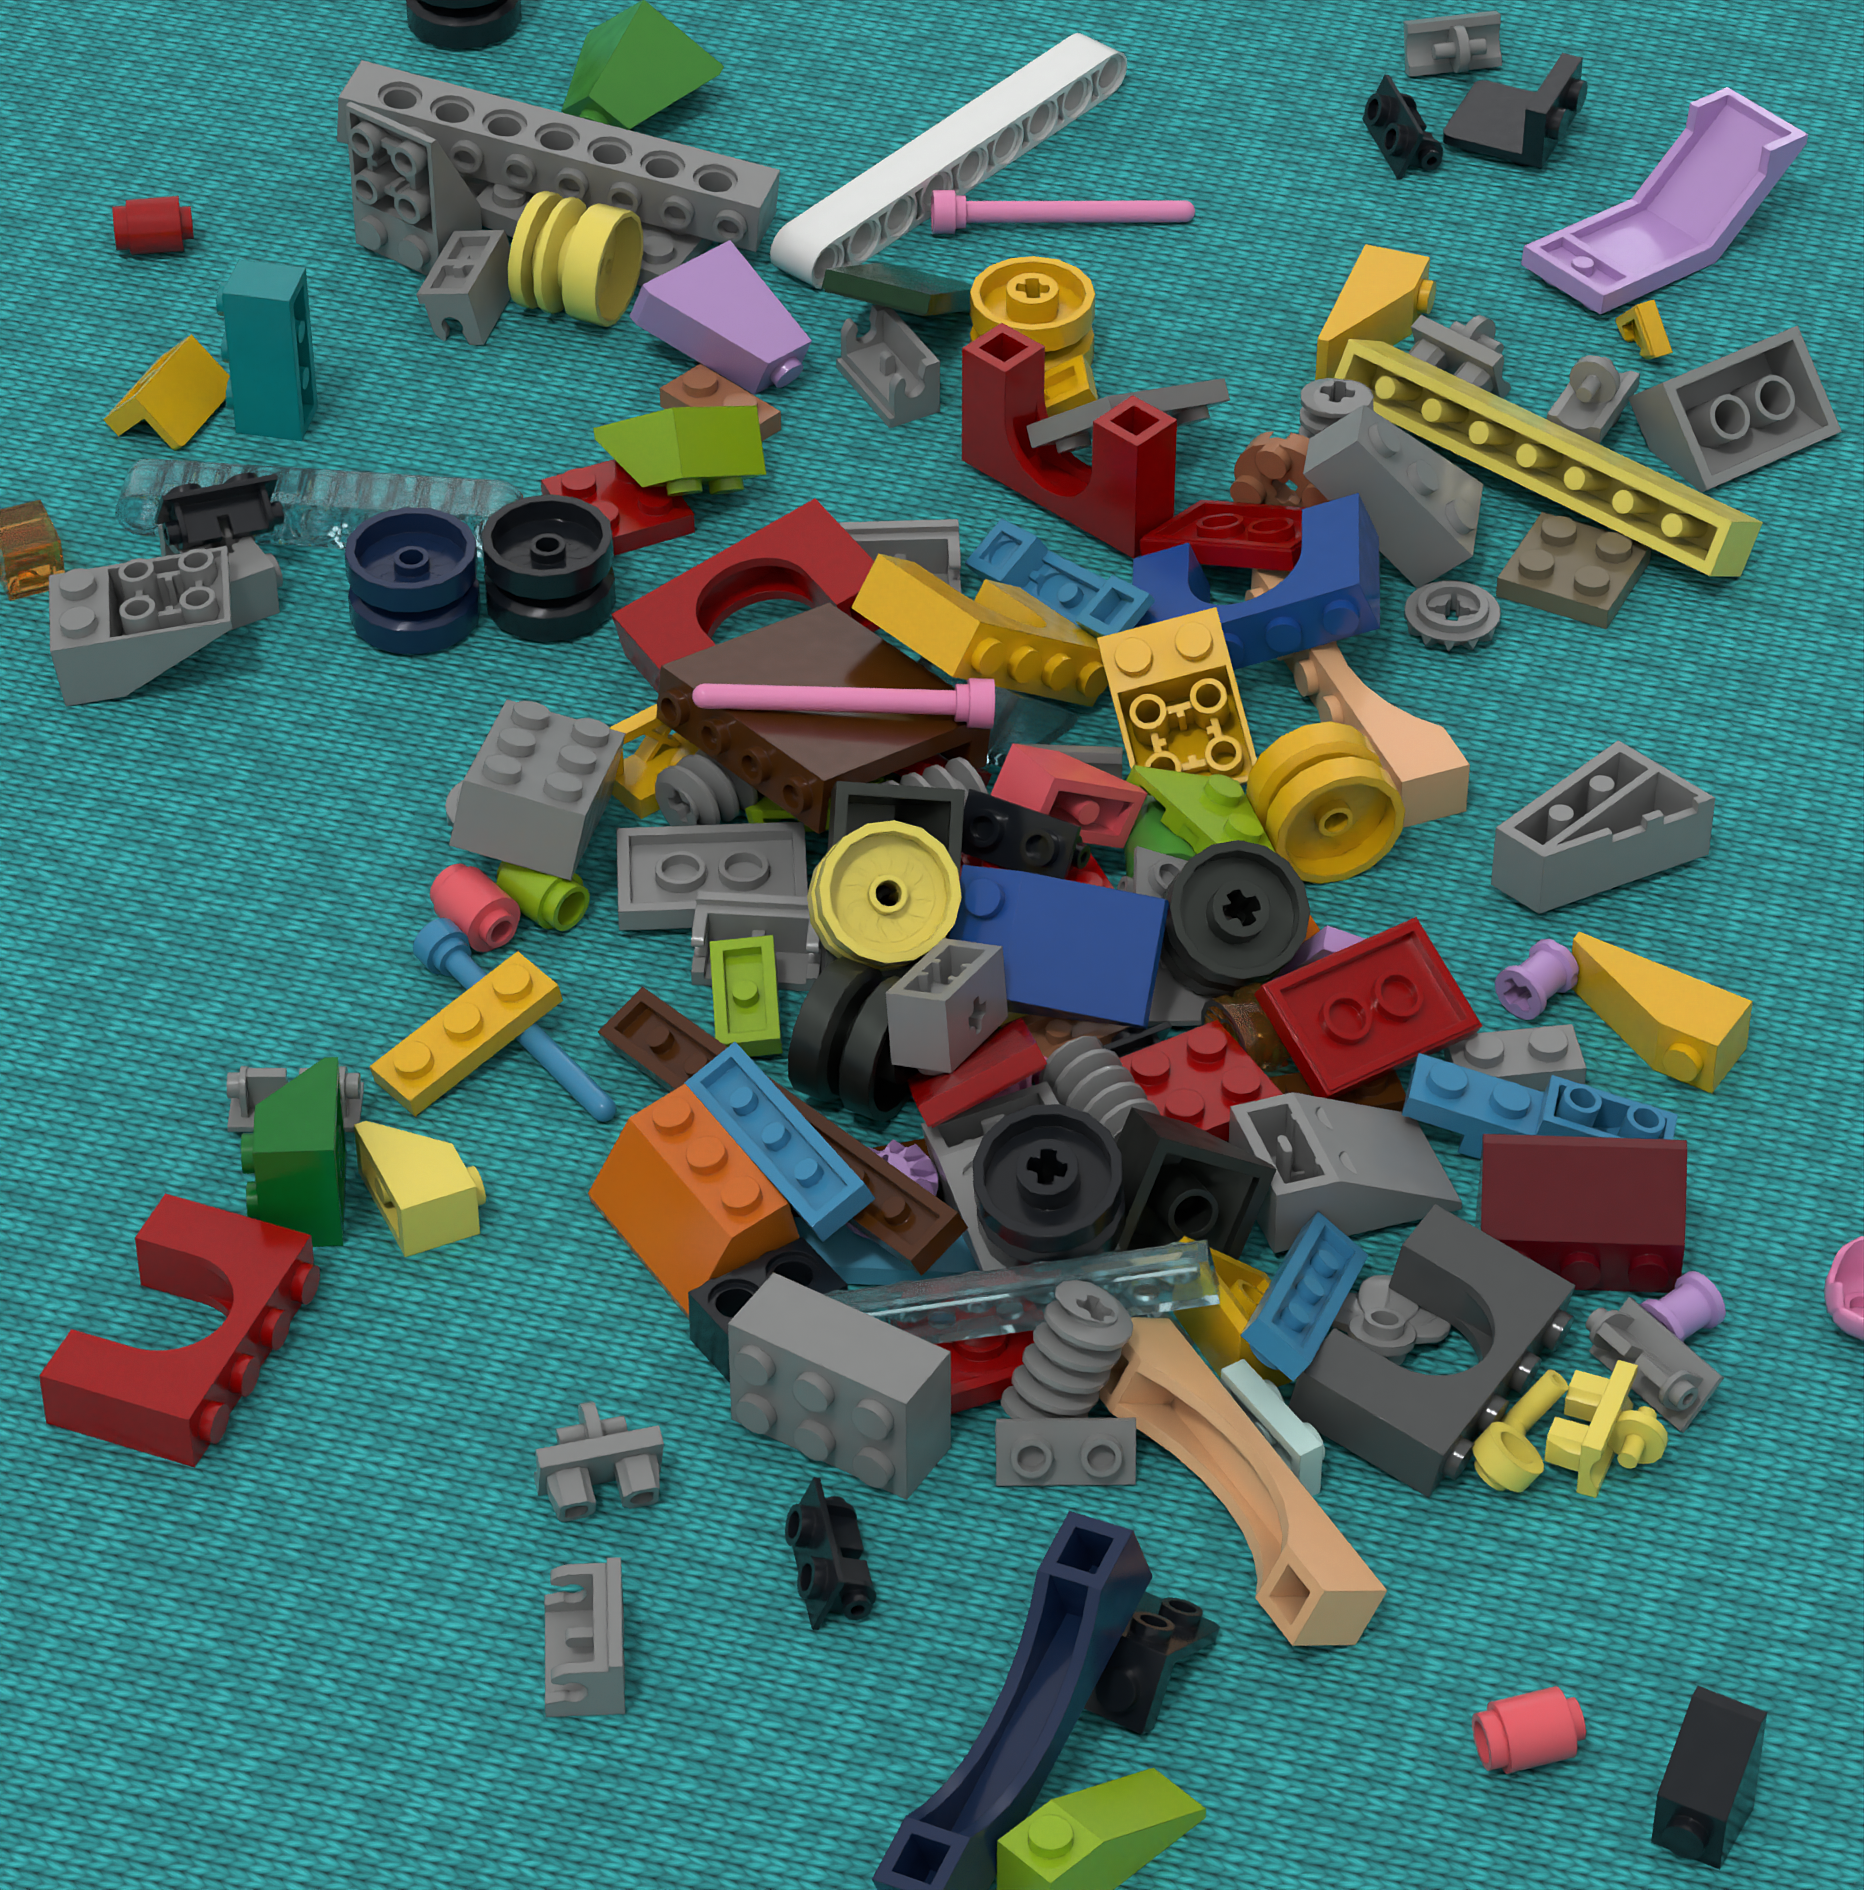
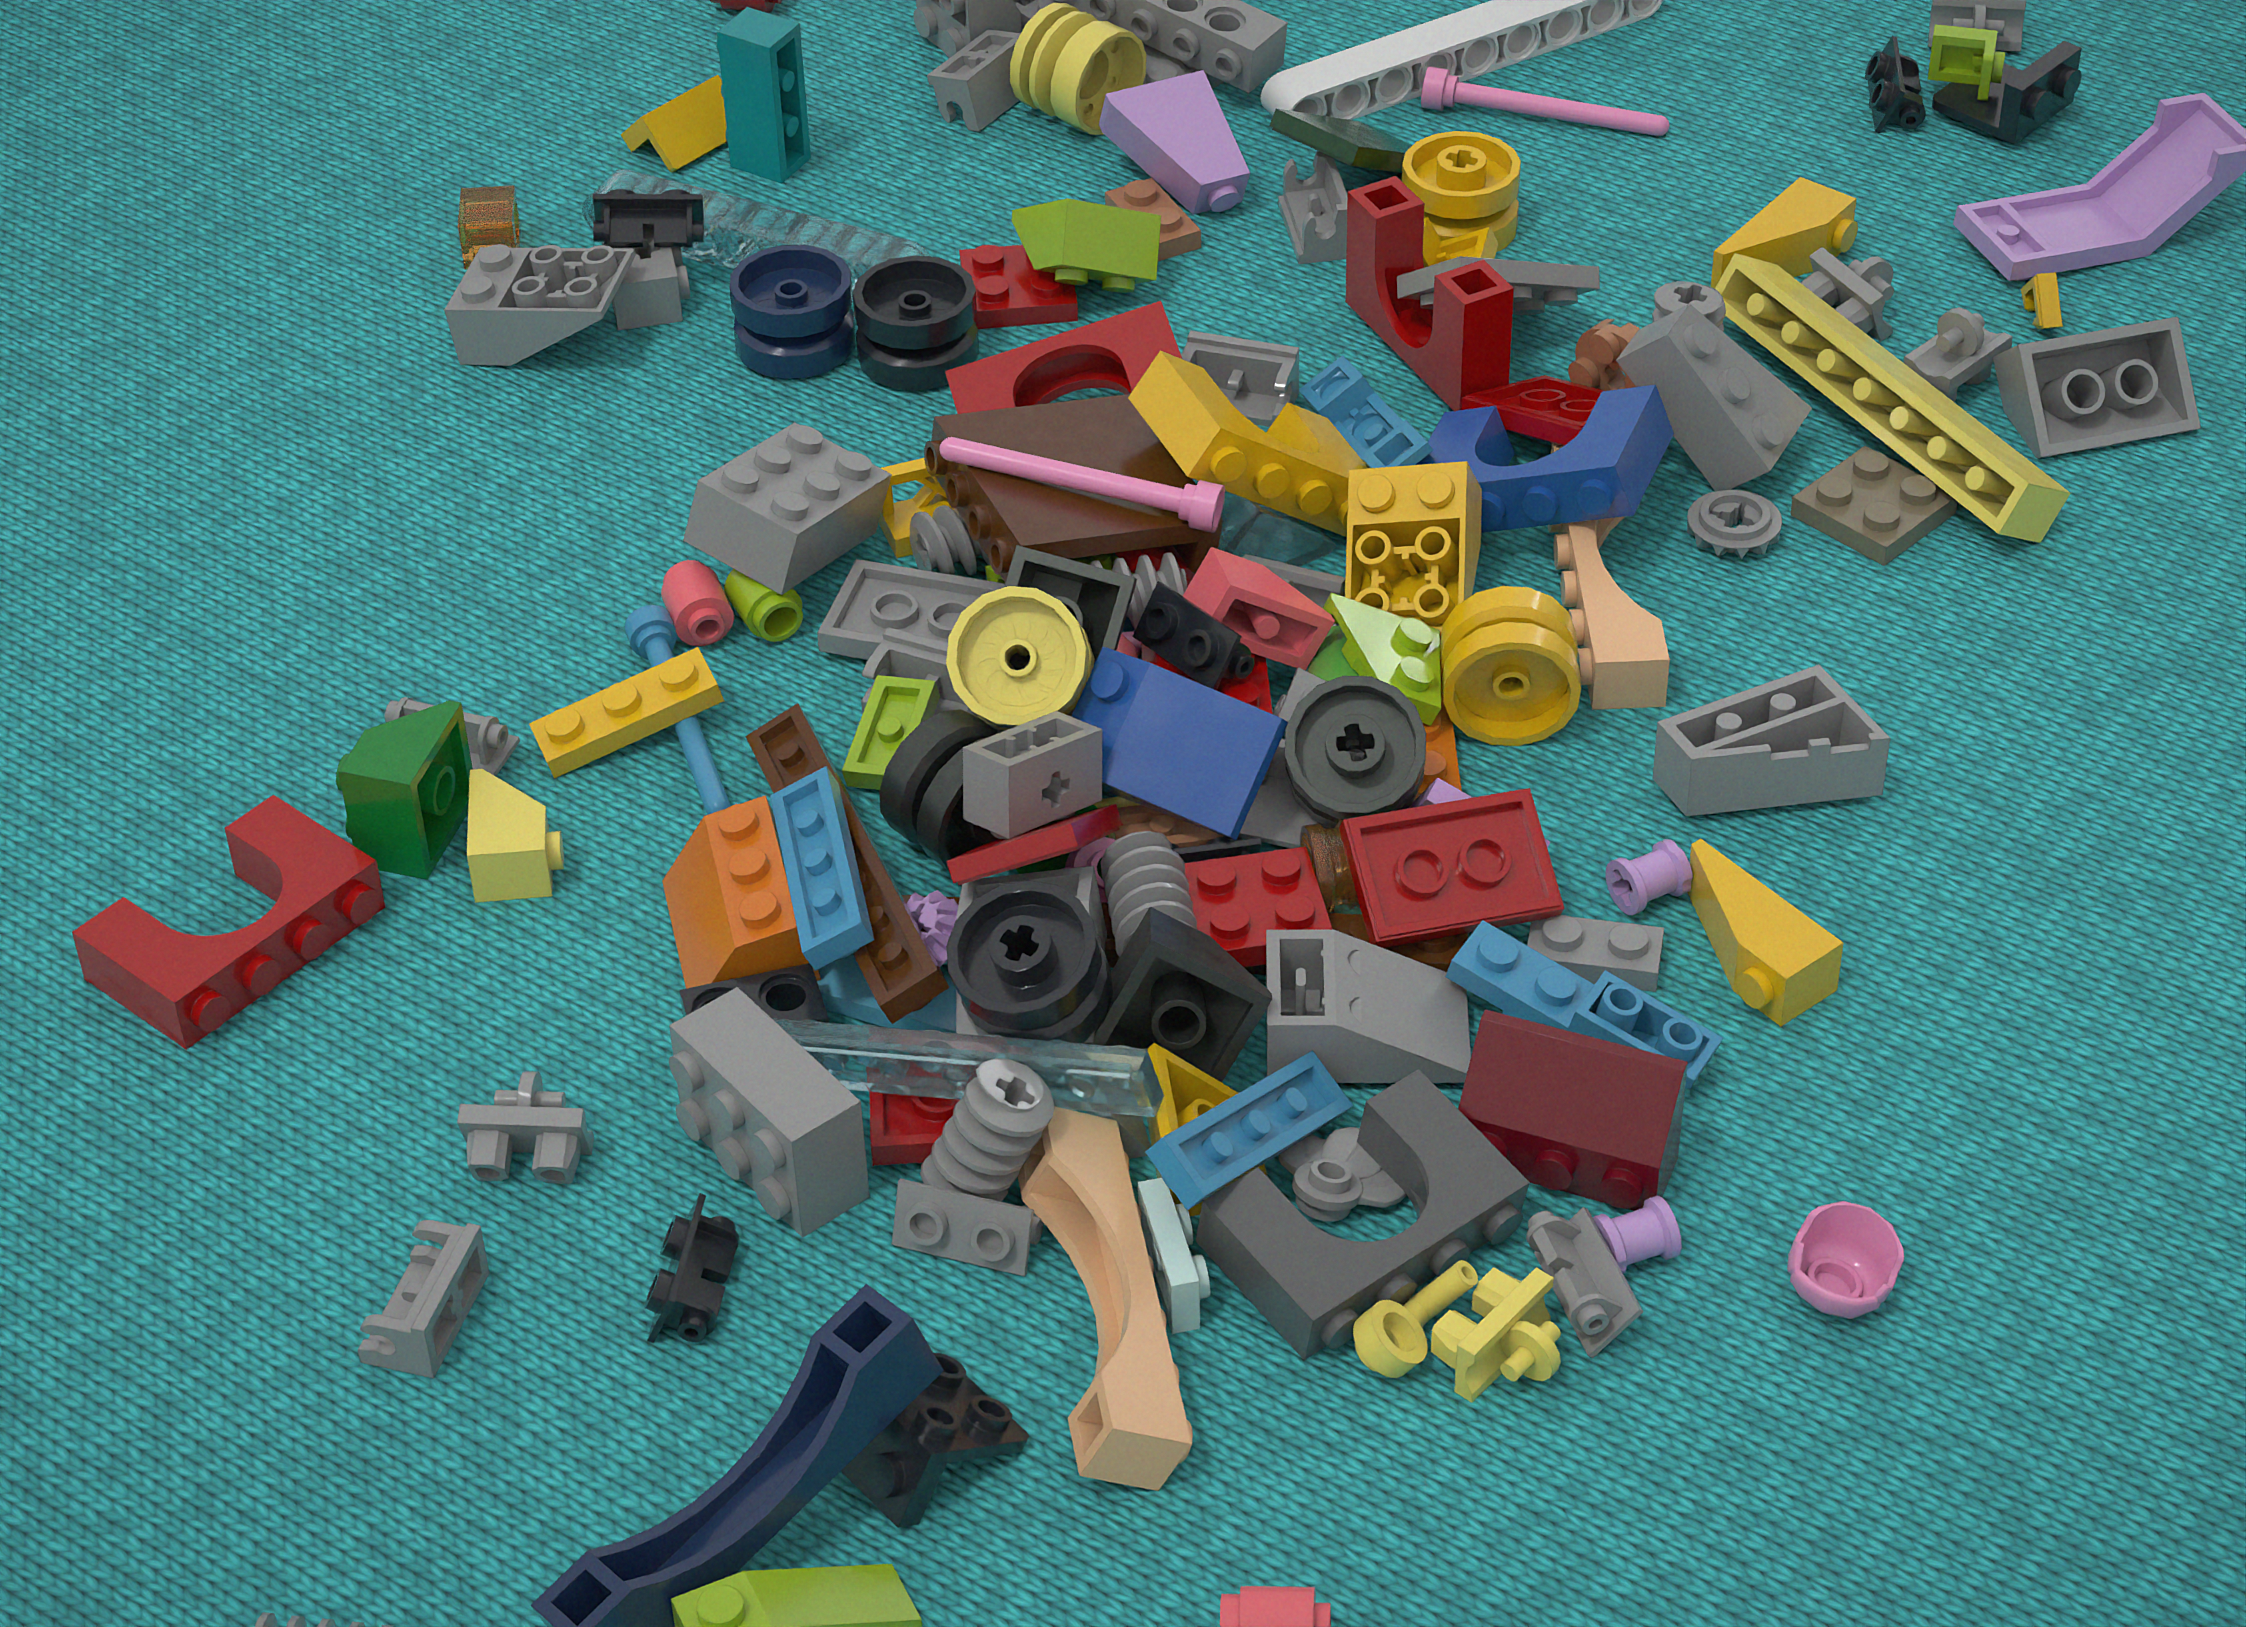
camera: 20 degrees right, 0 degrees up
(1467, 85) = (1966, 57): none -> lime bracket

